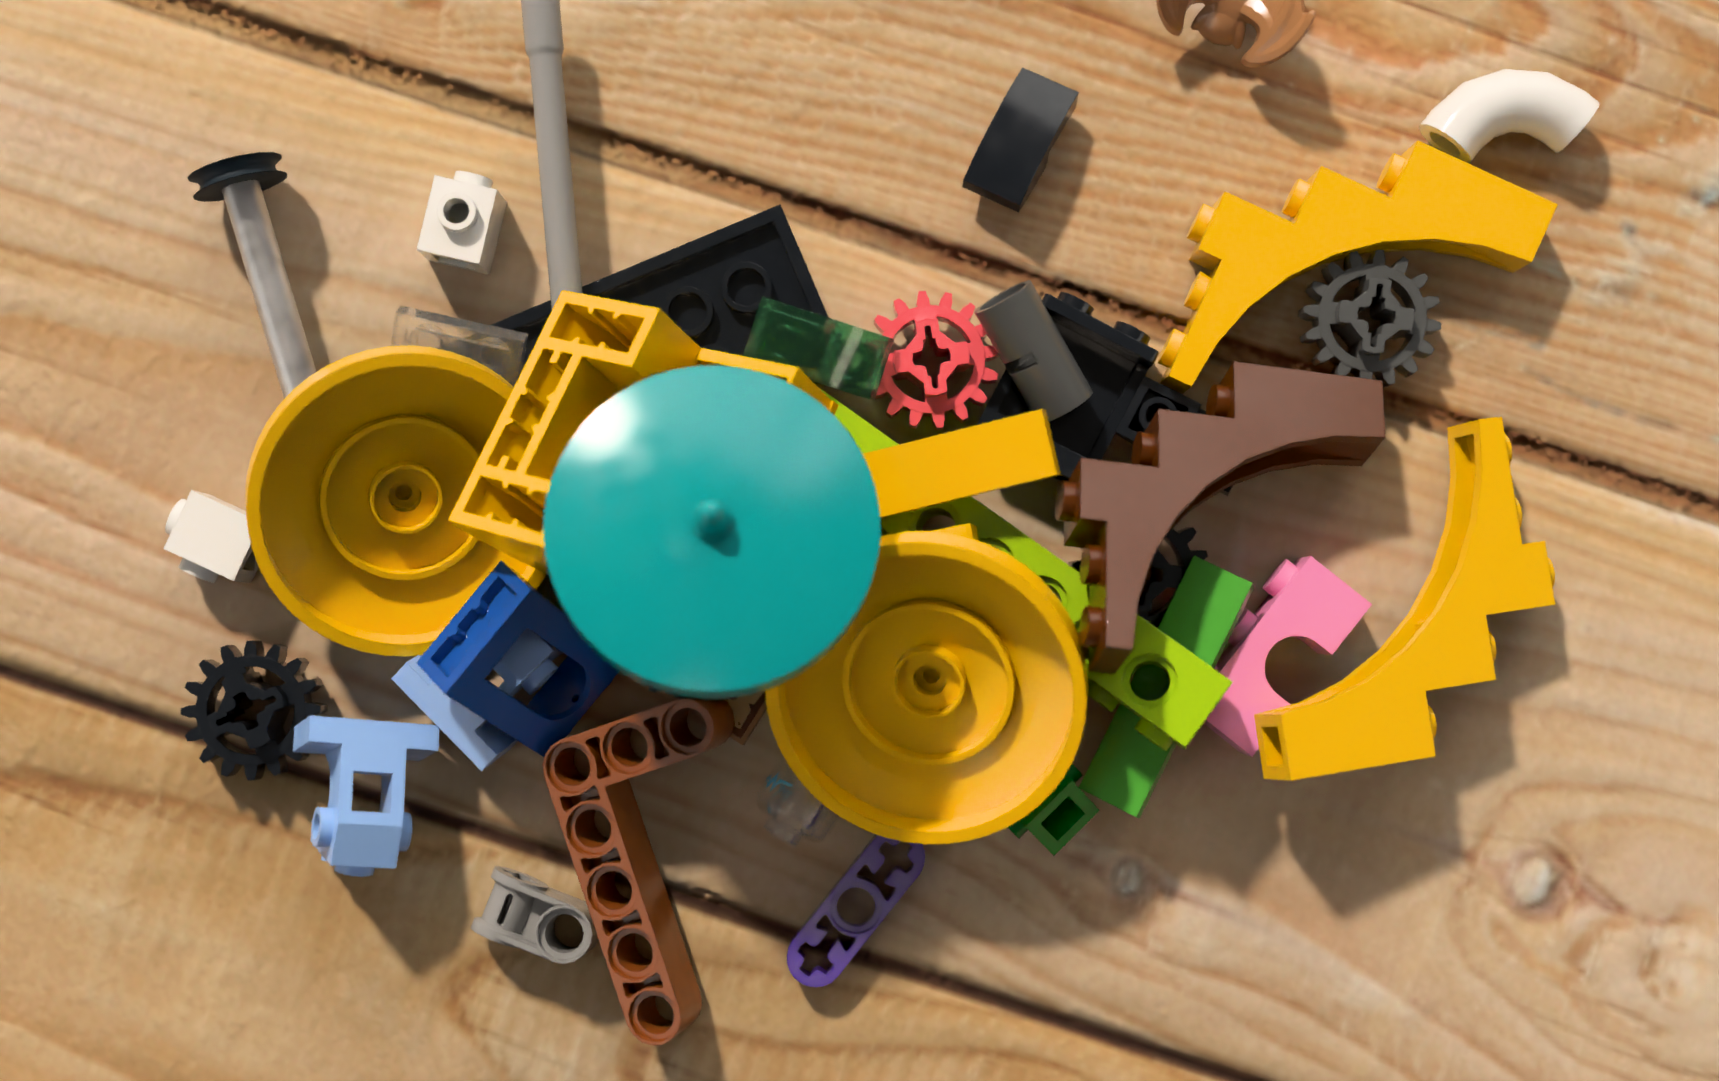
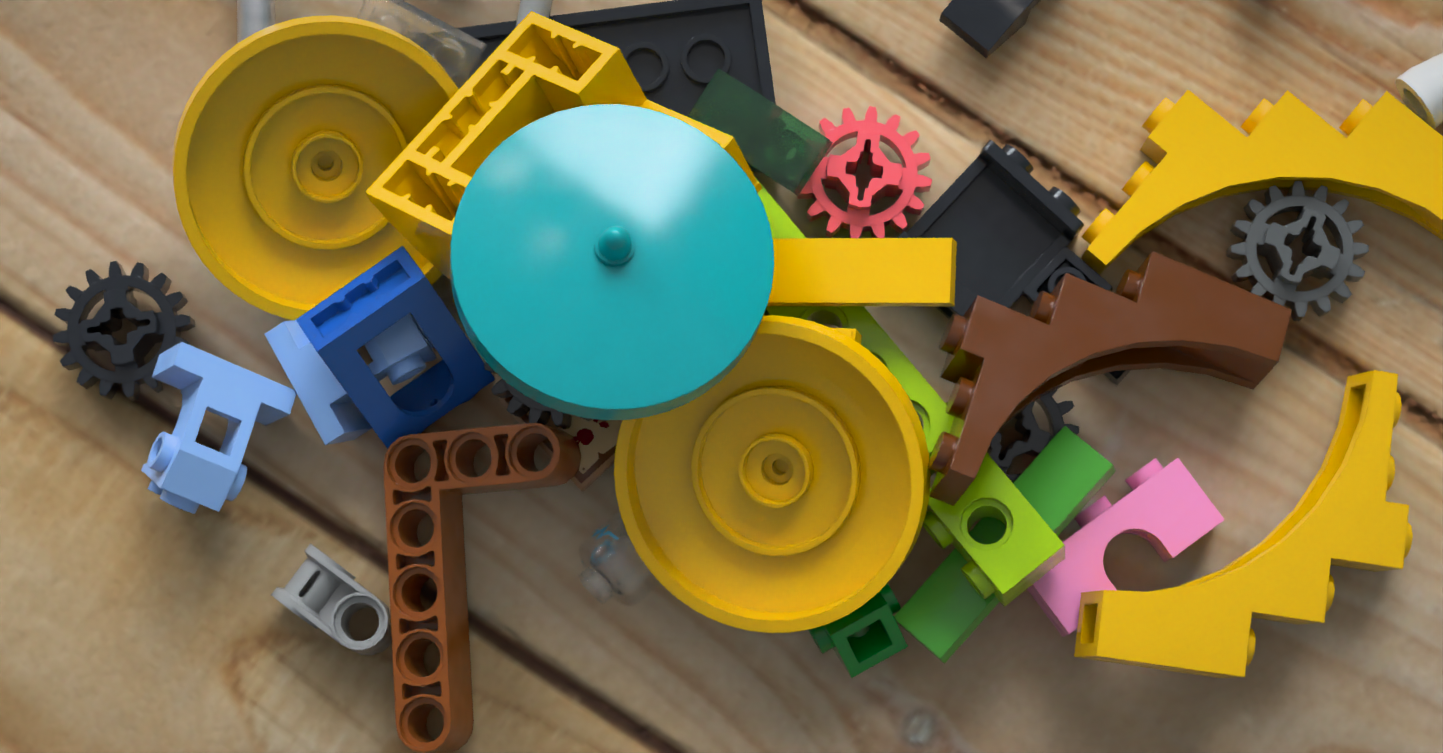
camera: 20 degrees right, 5 degrees down
(211, 539) = (132, 158): white brick -> none
(814, 933) = (599, 695): beam -> none
(1033, 350) = (964, 190): dark grey pin -> none

